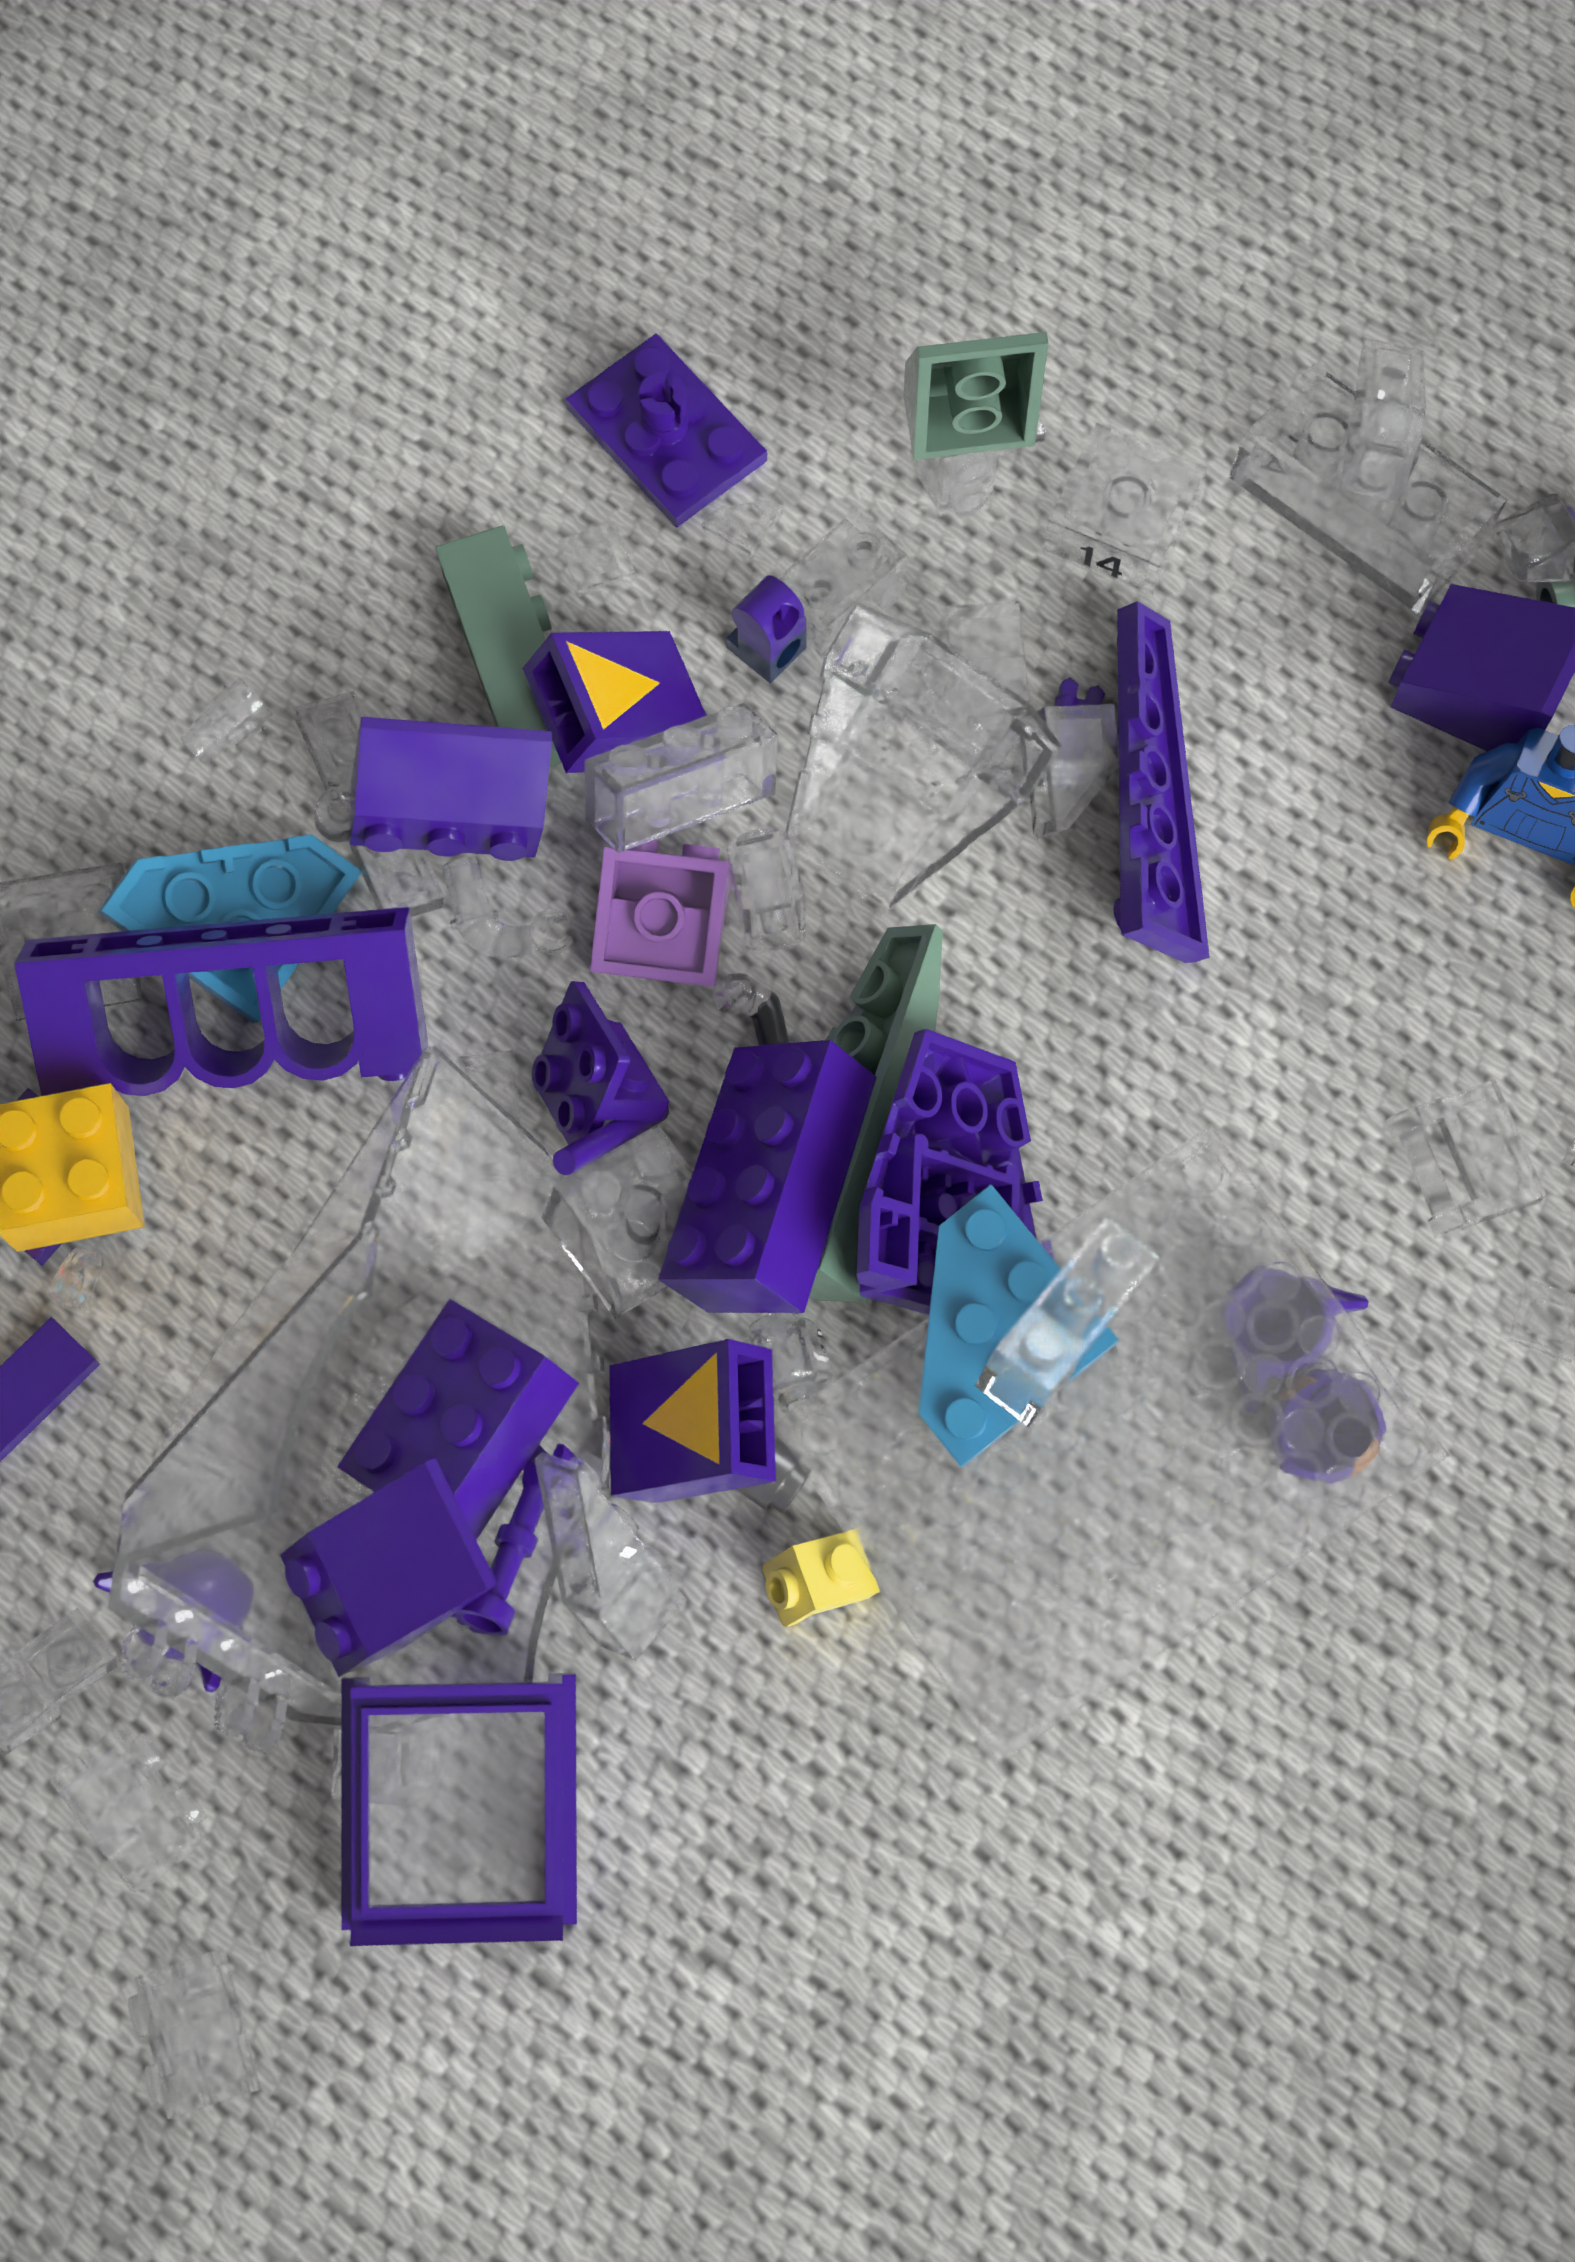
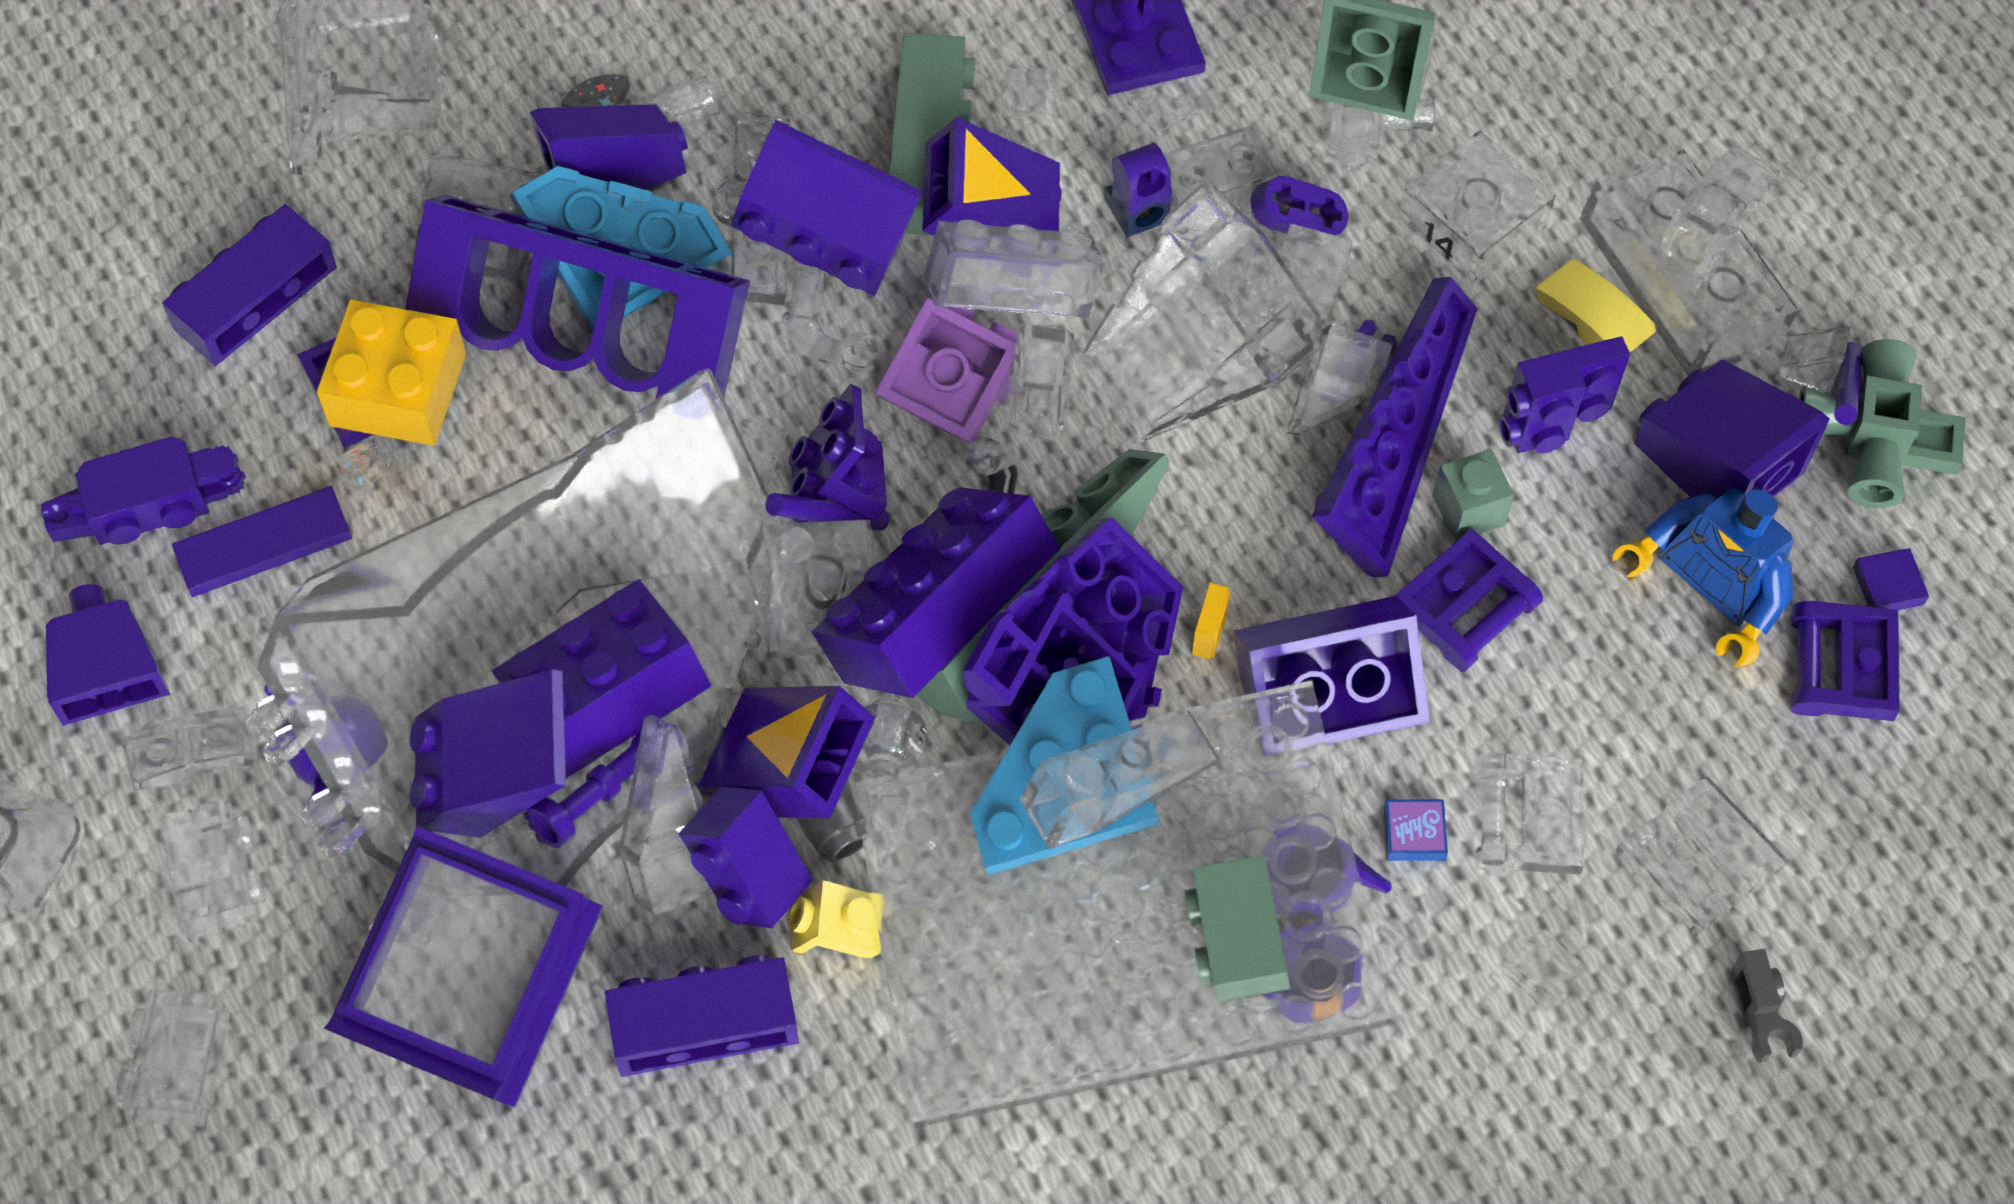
camera: 20 degrees right, 10 degrees down
(128, 748) = (598, 91): none -> flat silver tile
(176, 803) = (612, 143): none -> dark purple slope
(703, 1558) = (745, 857): none -> dark purple brick
(729, 1741) = (701, 1015): none -> dark purple brick
(941, 572) = (1301, 199): none -> dark purple beam
(1056, 1084) = (1211, 621): none -> yellow tile
(1215, 1066) = (1359, 660): none -> dark purple slope
(1258, 1429) = (1239, 929): none -> sand green brick
(1261, 835) = (1473, 494): none -> sand green brick
(1283, 942) = (1456, 585): none -> dark purple plate
(1300, 575) = (1594, 306): none -> light yellow slope
(1304, 690) = (1557, 390): none -> dark purple plate
(1358, 1223) = (1415, 830): none -> tile

